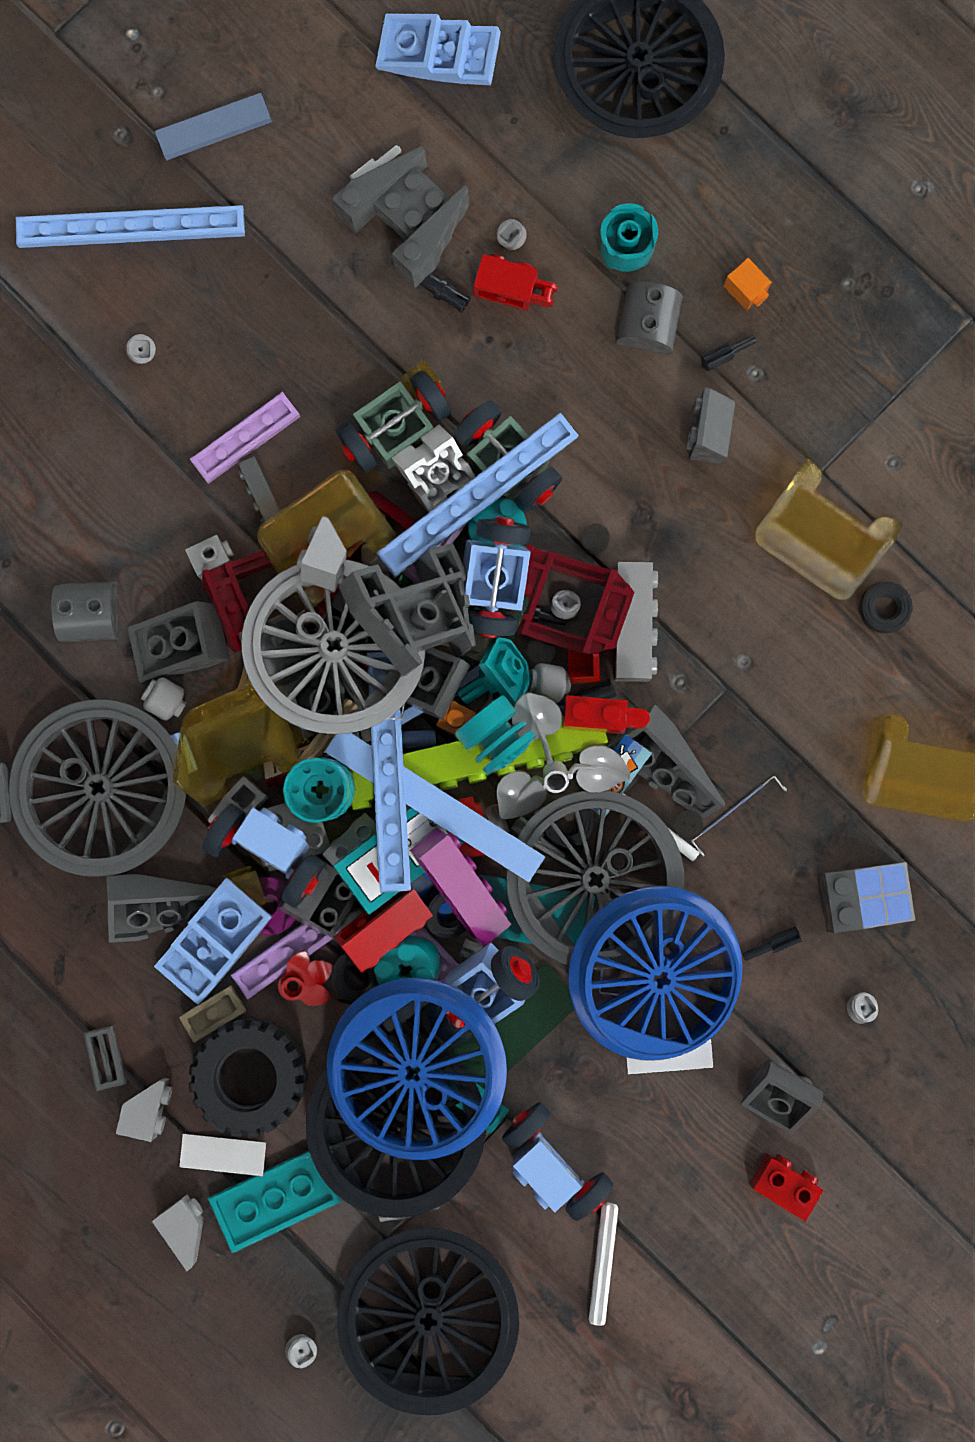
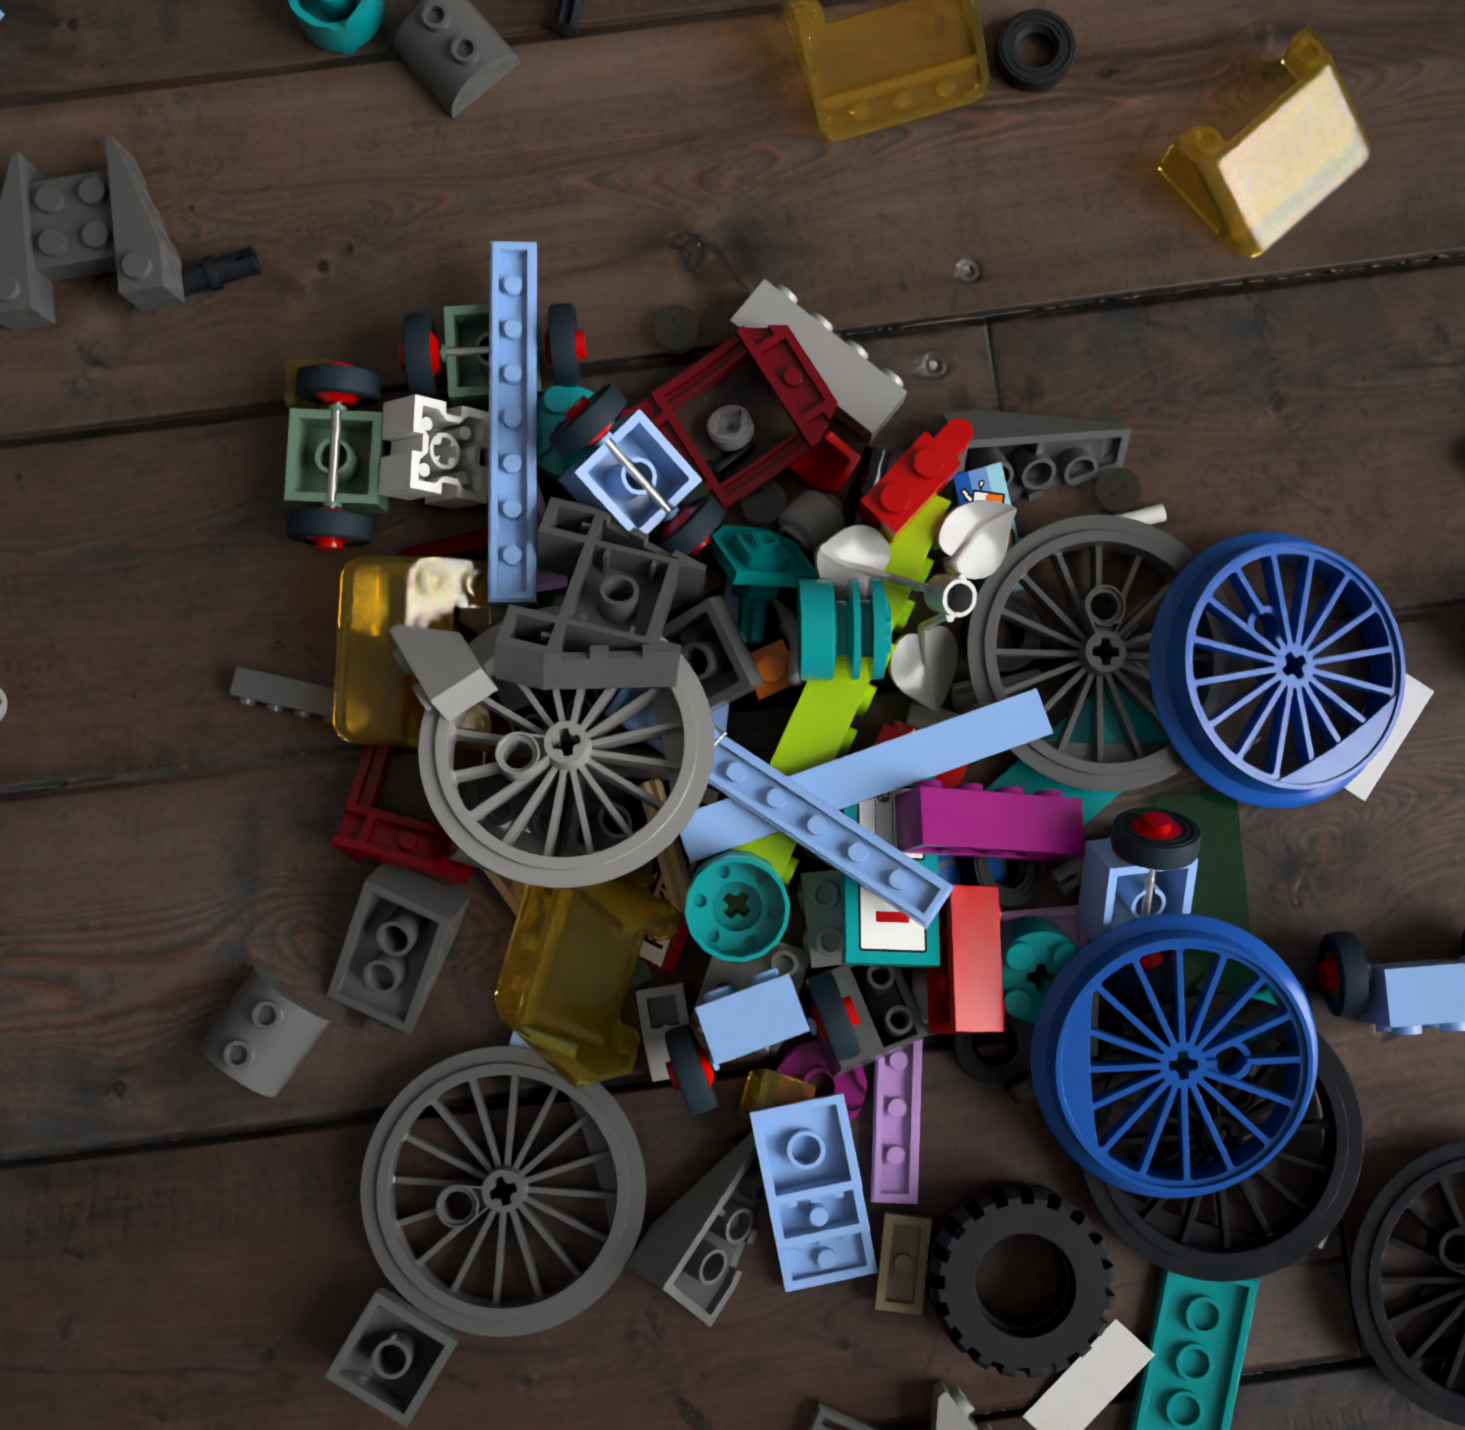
camera: 55 degrees left, 0 degrees up
(163, 699) = (454, 1019): light grey head -> none
(209, 554) = (317, 819): light grey brick -> none
(245, 437) = (203, 661): lavender tile -> none
(310, 980) = (951, 1105): red plate -> none
(419, 739) = (759, 732): light blue axle -> none
(511, 234) = (214, 135): light grey tile -> none
(511, 283) = (277, 181): red brick -> none
(712, 427) = (651, 81): dark grey slope -> none
(742, 801) = (1137, 415): sand blue piece -> none
(775, 943) = (1342, 497): black axle -> none
(866, 897) = (1369, 349): slope -> none

